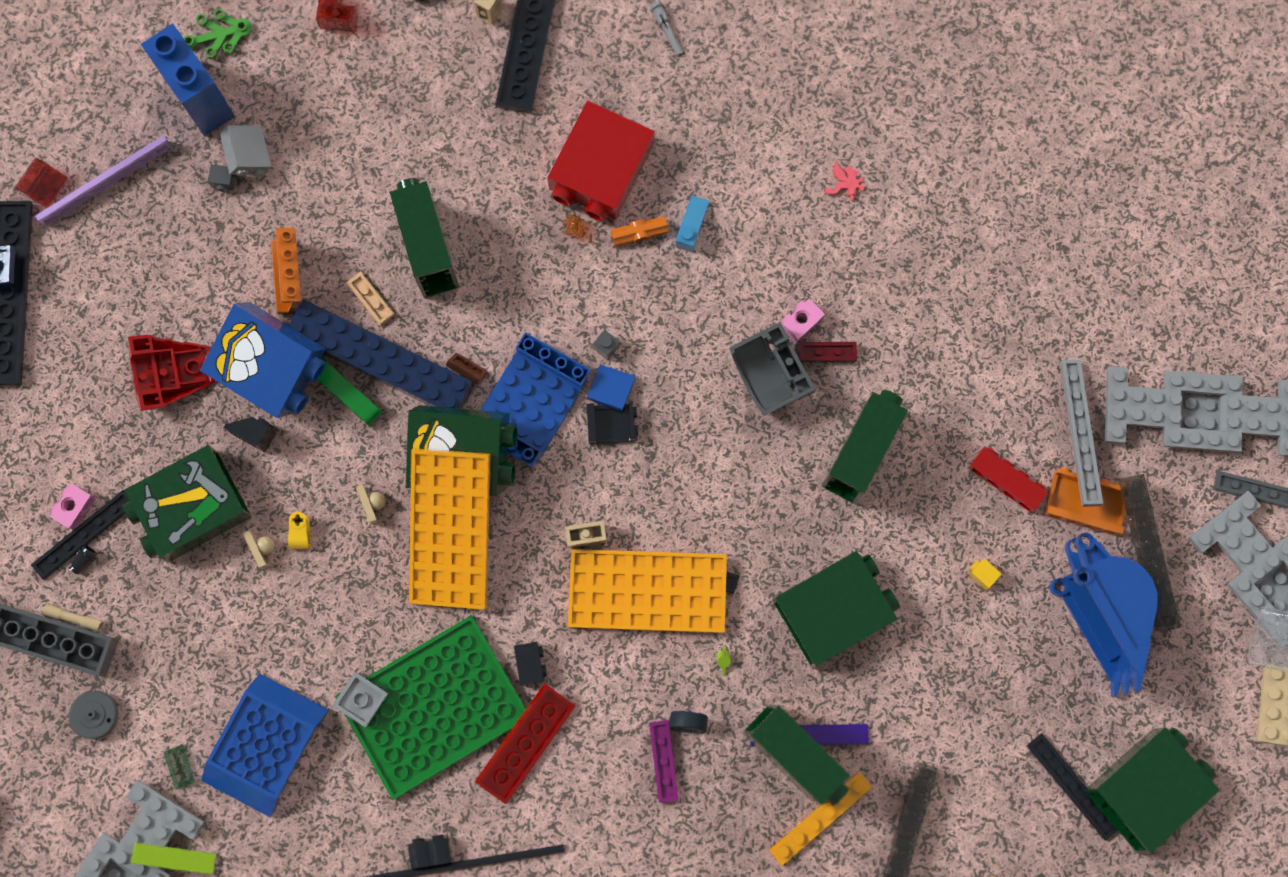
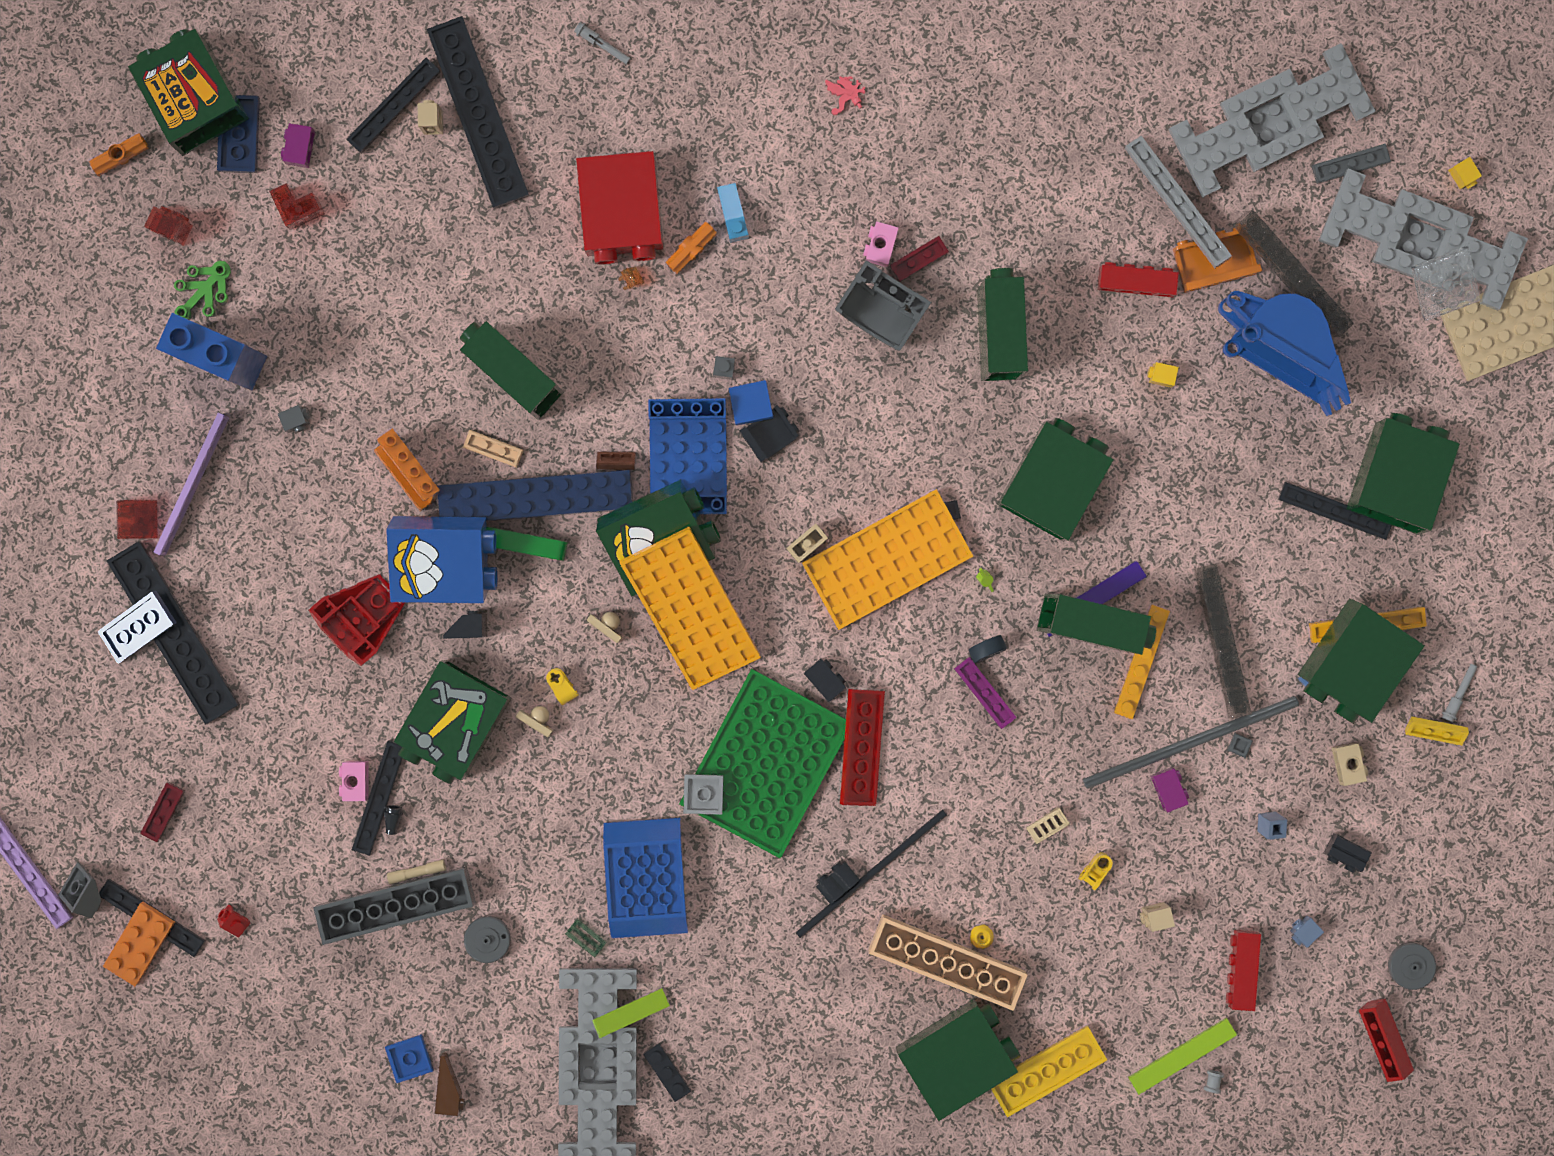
camera: 30 degrees left, 10 degrees up
(245, 150) = (299, 383): light grey brick -> none

